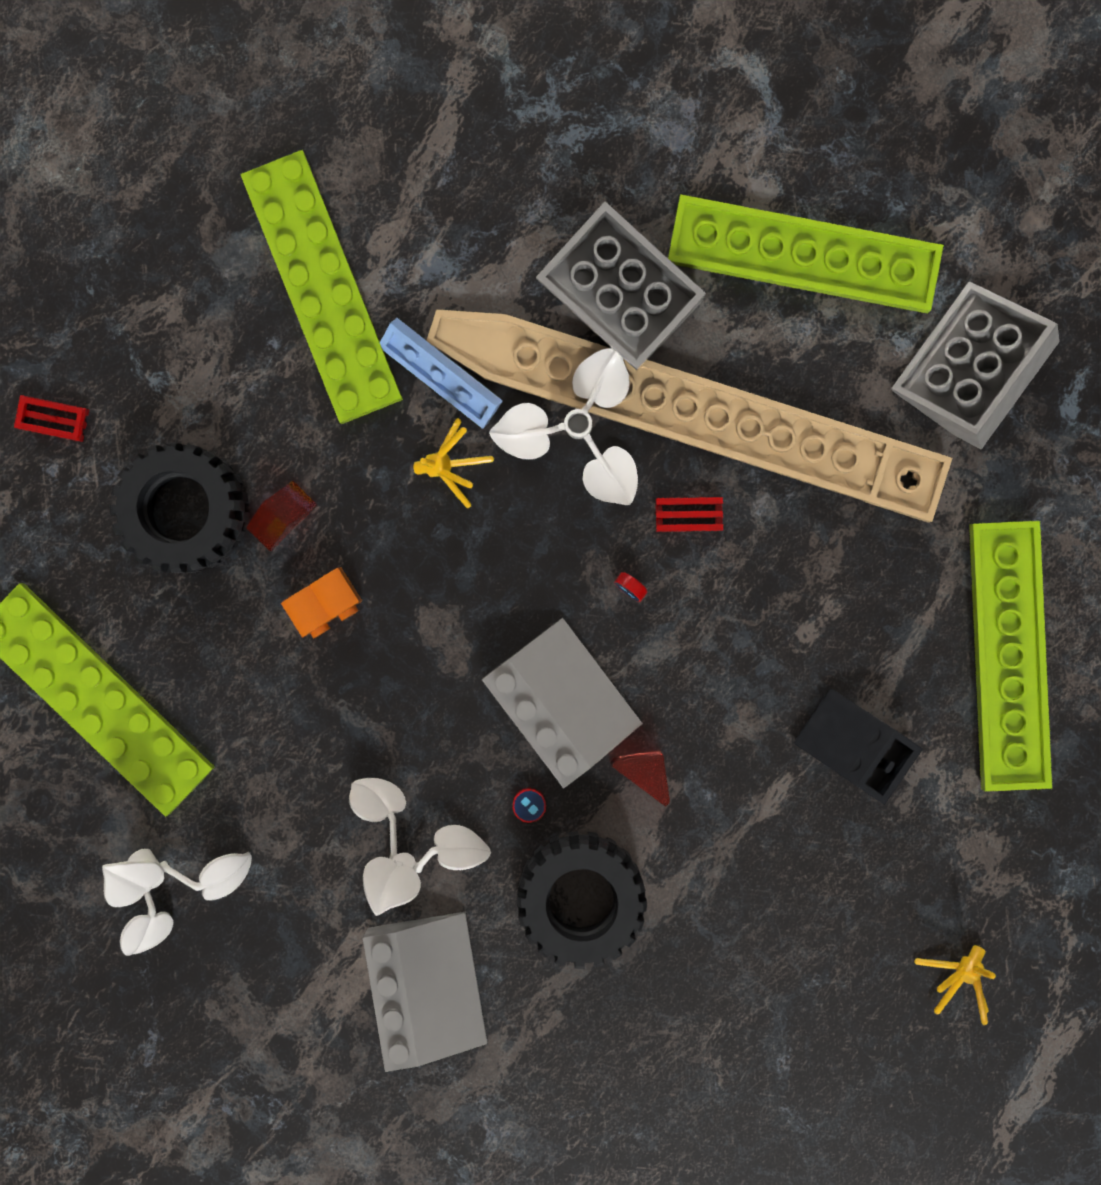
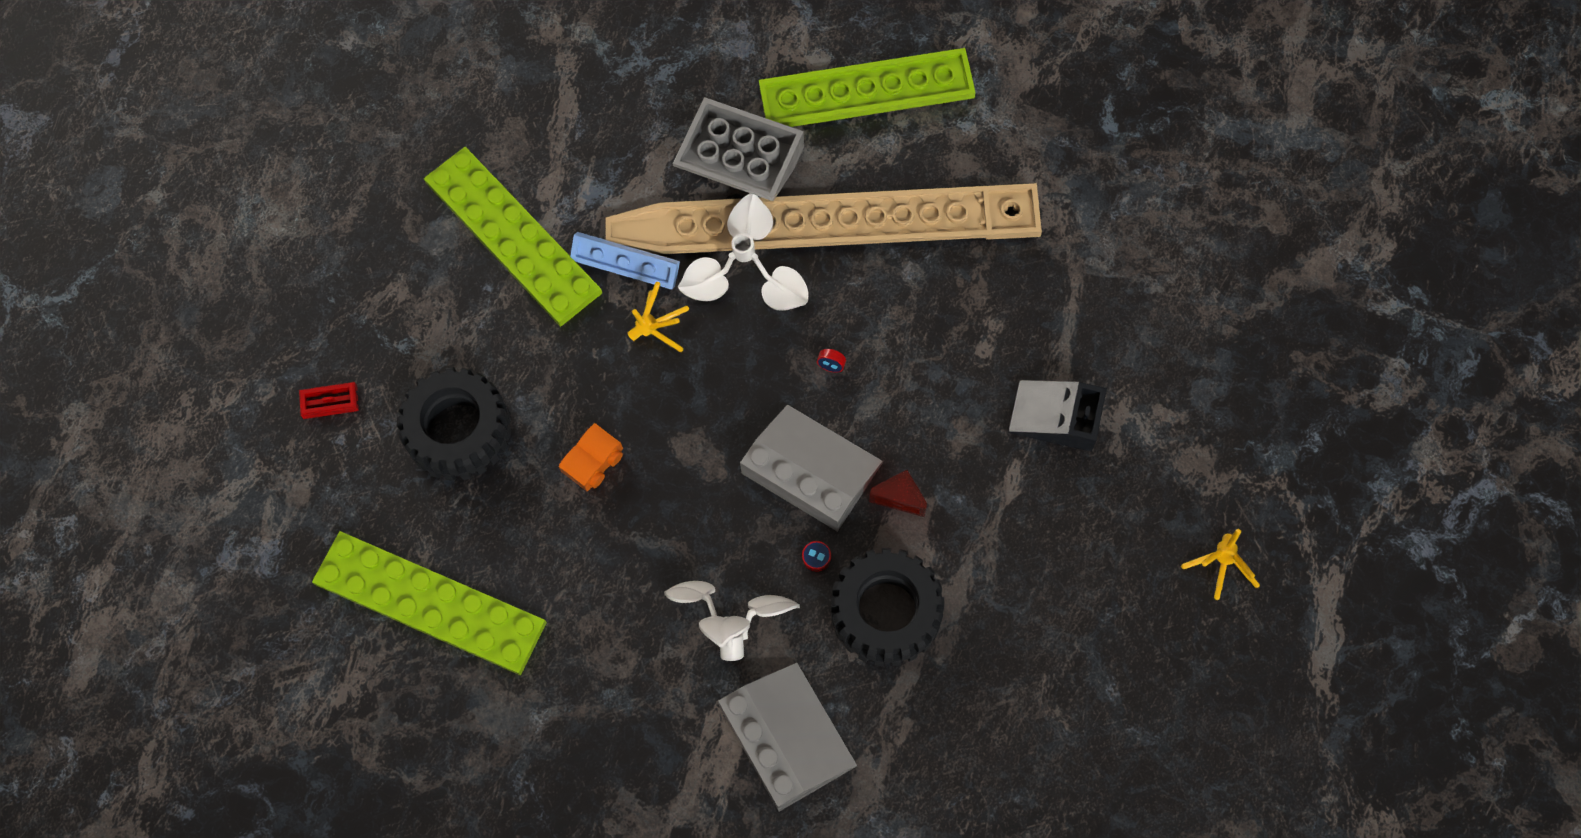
camera: 15 degrees left, 20 degrees down
(132, 879) = (508, 709): white plant -> none
(280, 515) = (534, 407): clear red slope -> none
(717, 514) = (851, 286): red tile -> none
(977, 363) = (1026, 116): light grey slope -> none
(1010, 656) = (1147, 309): lime plate -> none

